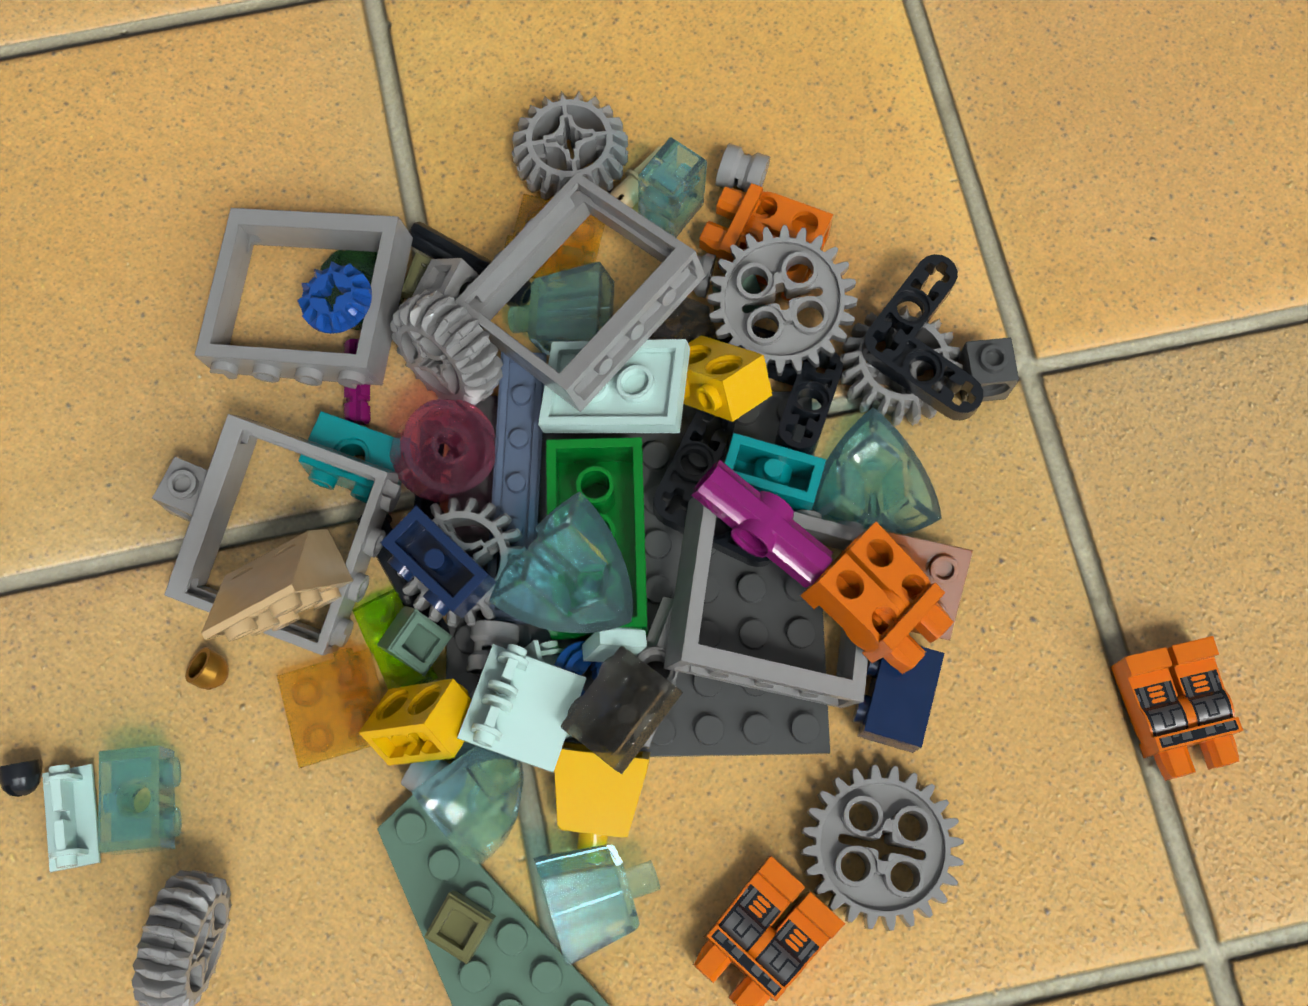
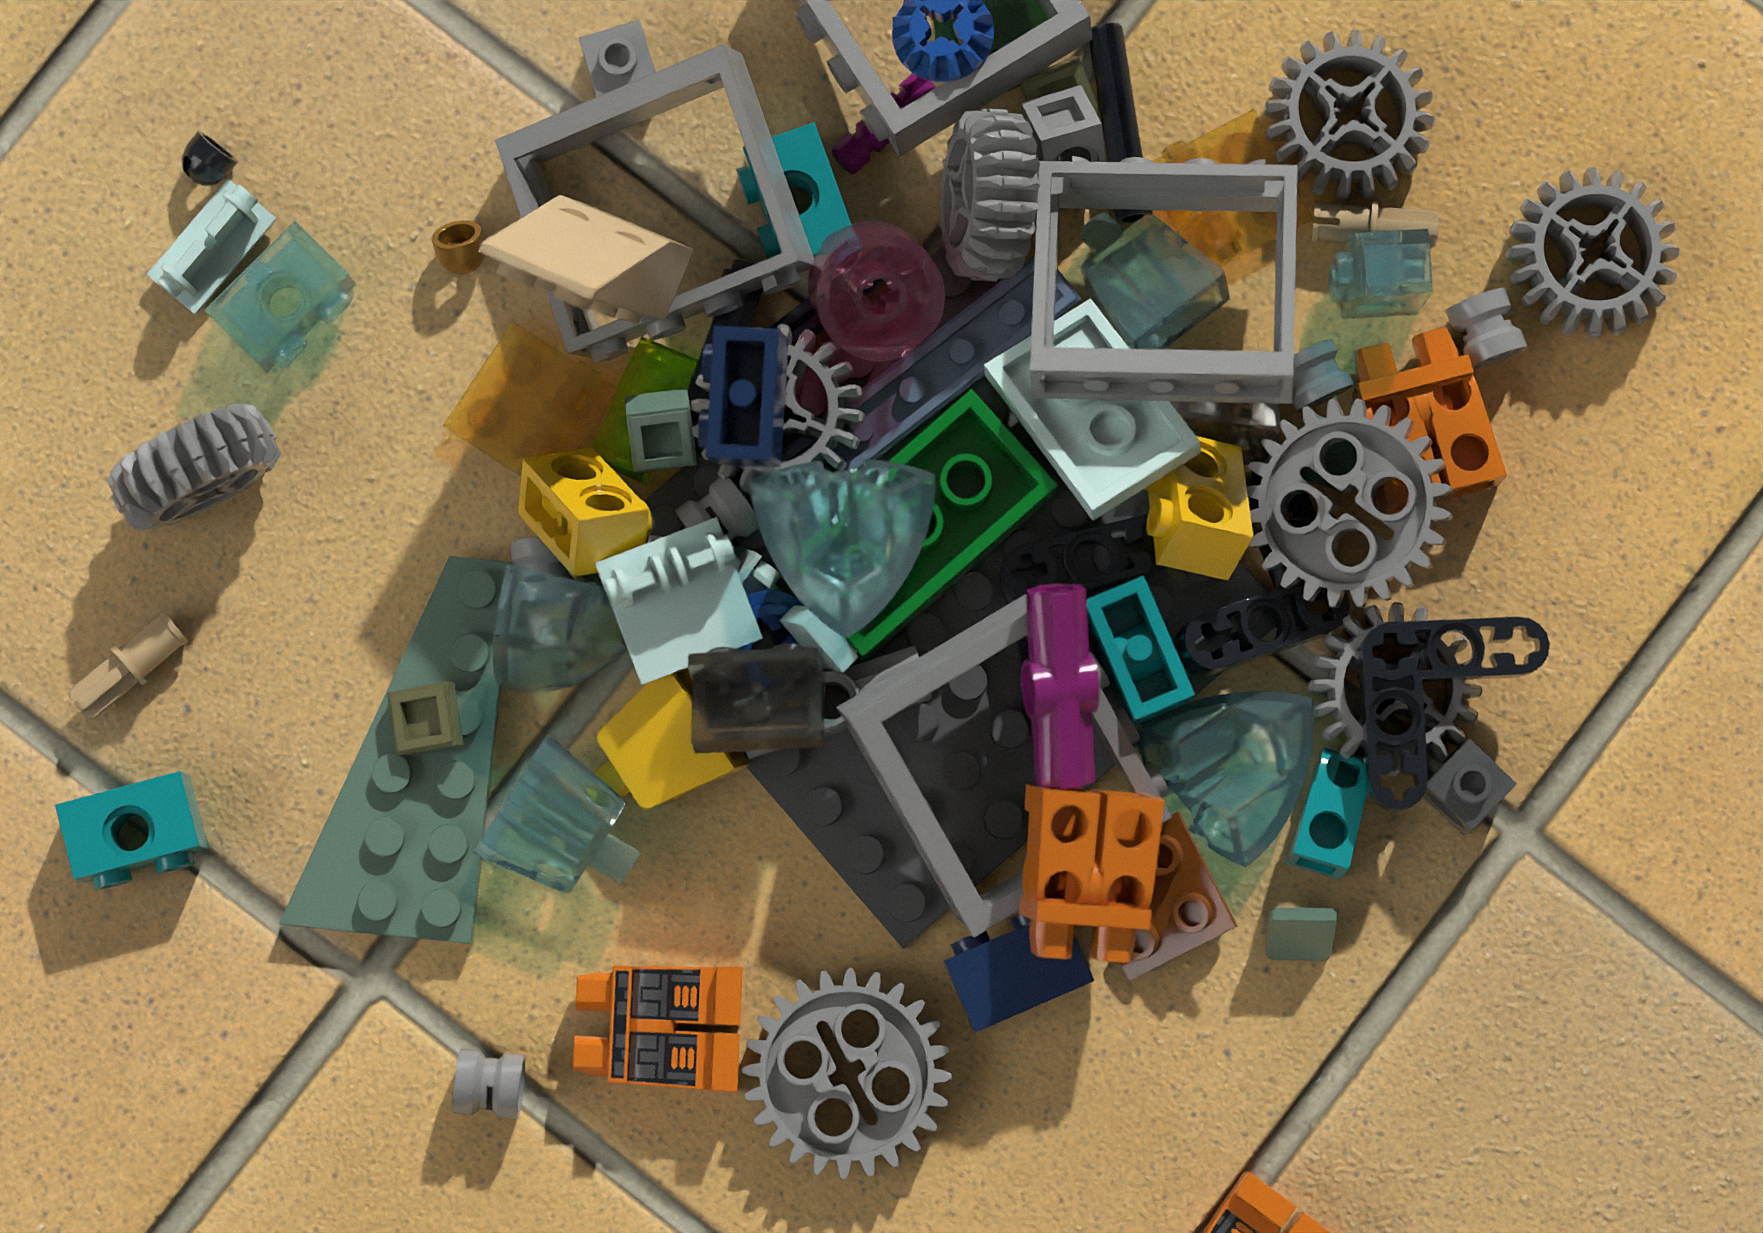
camera: 50 degrees right, 10 degrees up
(732, 108) = (1616, 269): none -> light grey gear
(945, 454) = (1330, 816): none -> teal leg
(997, 523) = (1300, 933): none -> sand green slope

